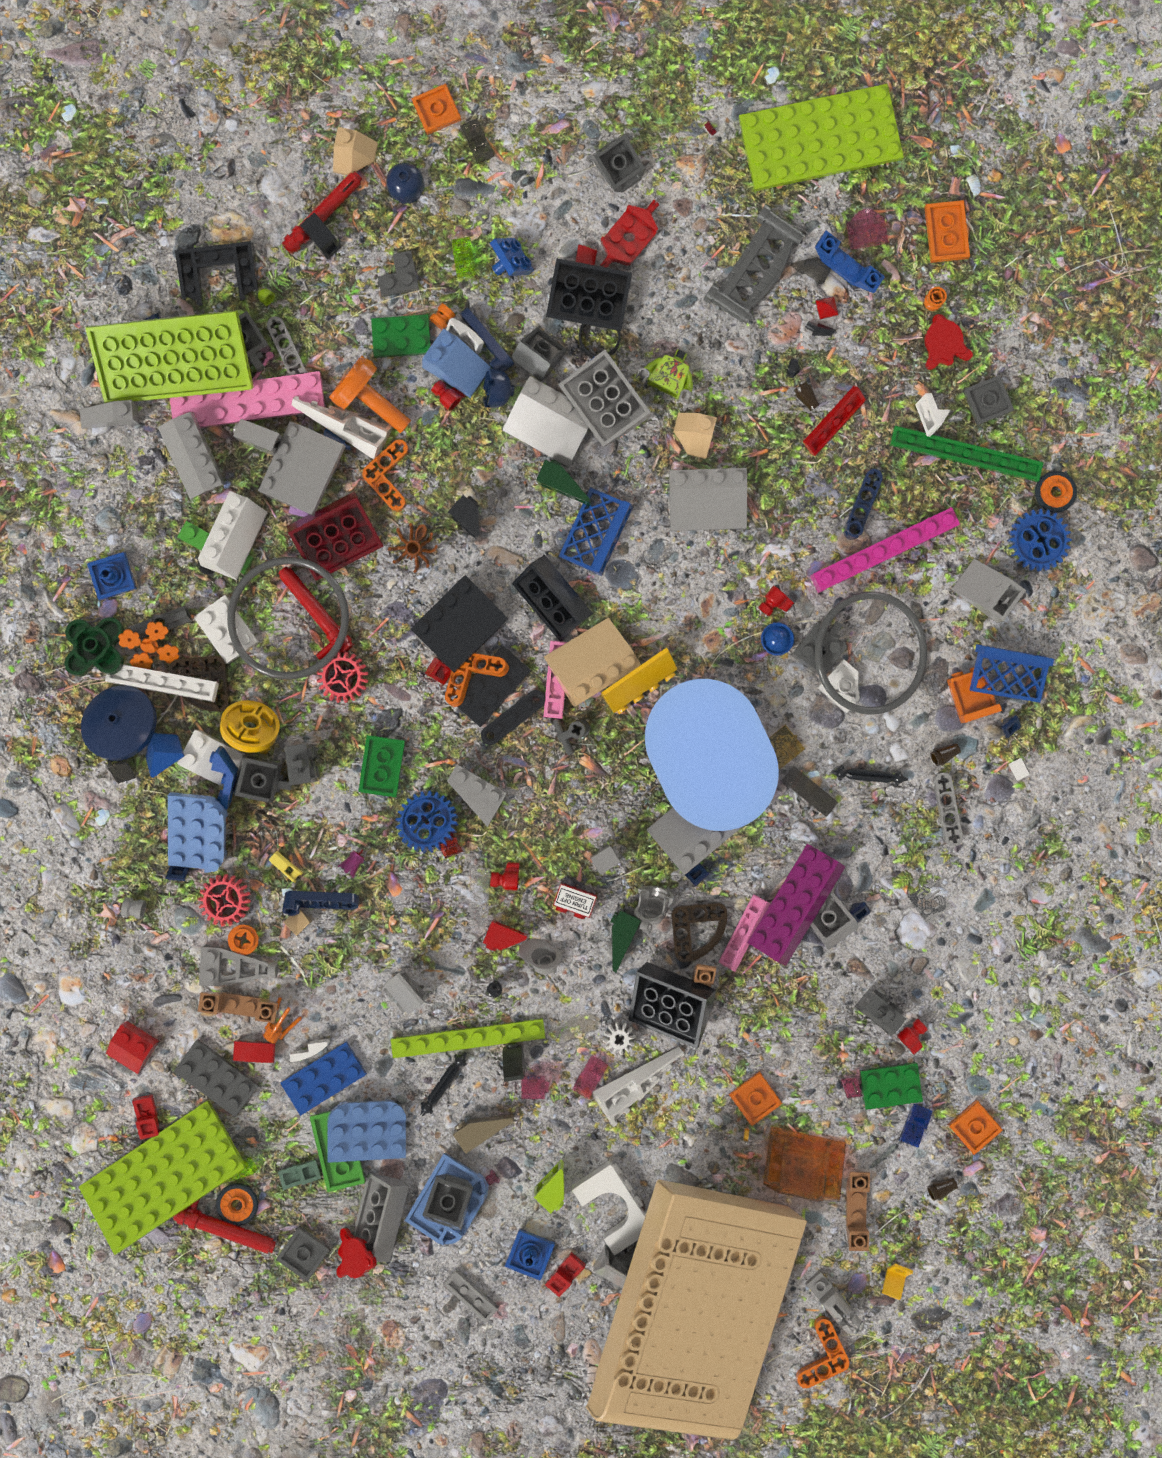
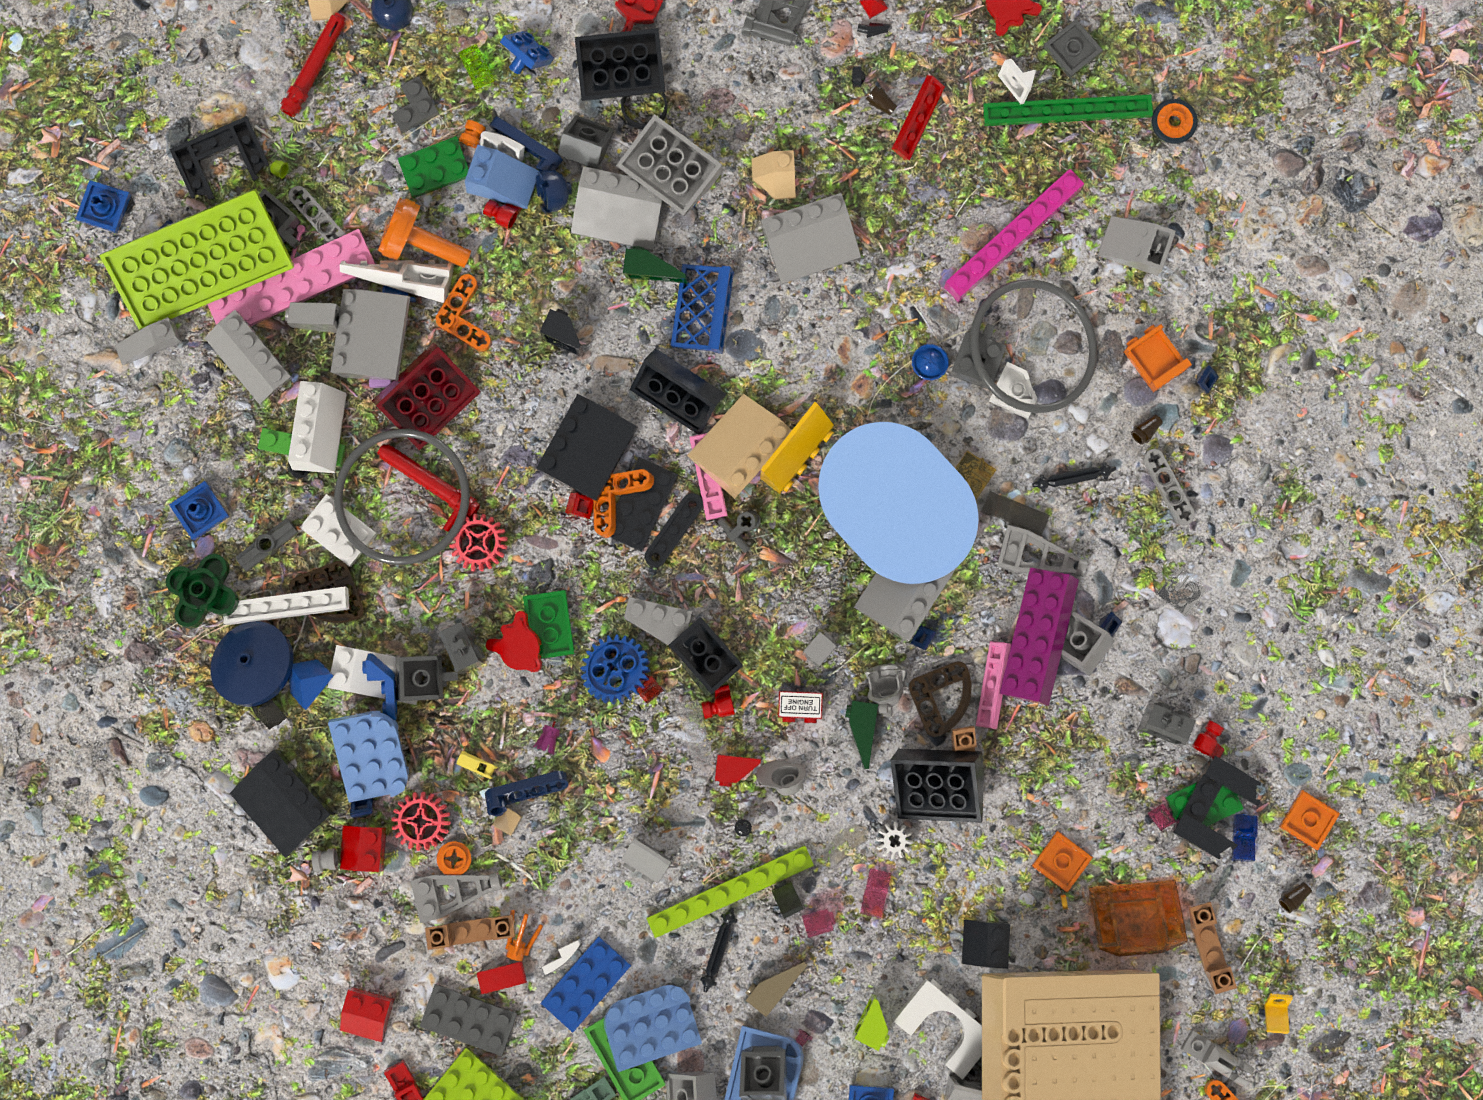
camera: 10 degrees left, 5 degrees down
(103, 283) = (103, 206): none -> blue plate
(111, 848) = (281, 802): none -> black slope
(149, 645) = (260, 570): orange plant -> none
(169, 908) = (363, 848): none -> red slope
(249, 739) = (398, 636): yellow piece -> none
(320, 235) = (319, 88): black slope -> none
(351, 776) = (519, 645): none -> red tile
(413, 547) = (514, 382): dark orange animal -> none
(506, 835) = (705, 656): none -> black slope
(586, 255) = (604, 25): red slope -> none
(623, 1092) = (916, 899): white wedge -> none
(669, 375) = (730, 123): lime torso -> none
(669, 1148) = (986, 943): none -> black slope
(775, 598) = (914, 321): red piece -> none
(798, 820) = (1012, 550): none -> light grey plate
(865, 505) = (978, 195): dark blue beam -> none
(884, 1088) = (1189, 822): none -> black wedge
(1009, 657) = (1187, 304): blue fence -> none
(1019, 769) = (1230, 422): white sticker -> none
(1024, 548) = (1161, 188): blue gear -> none

